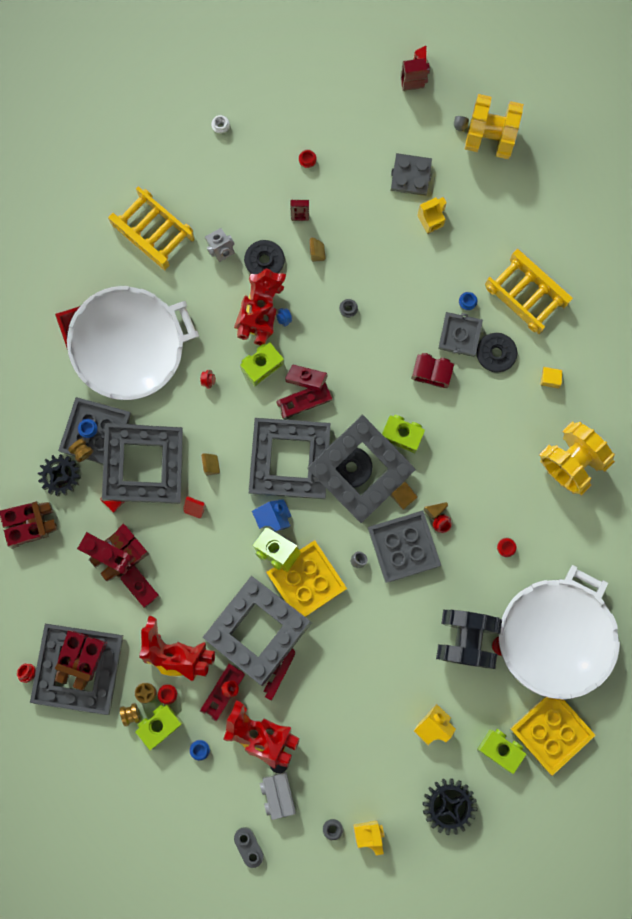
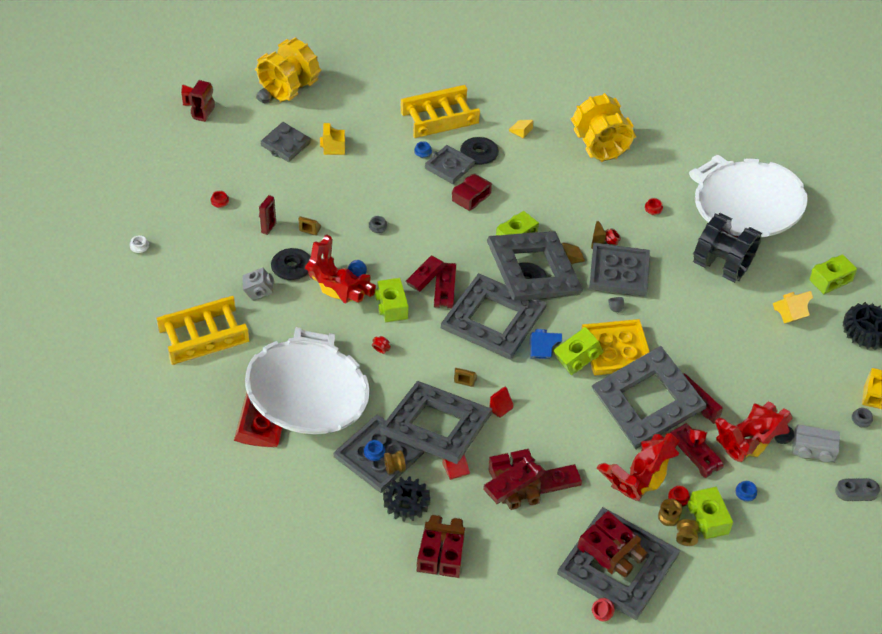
camera: 65 degrees left, 30 degrees down
(552, 733) = (828, 237): yellow plate -> none

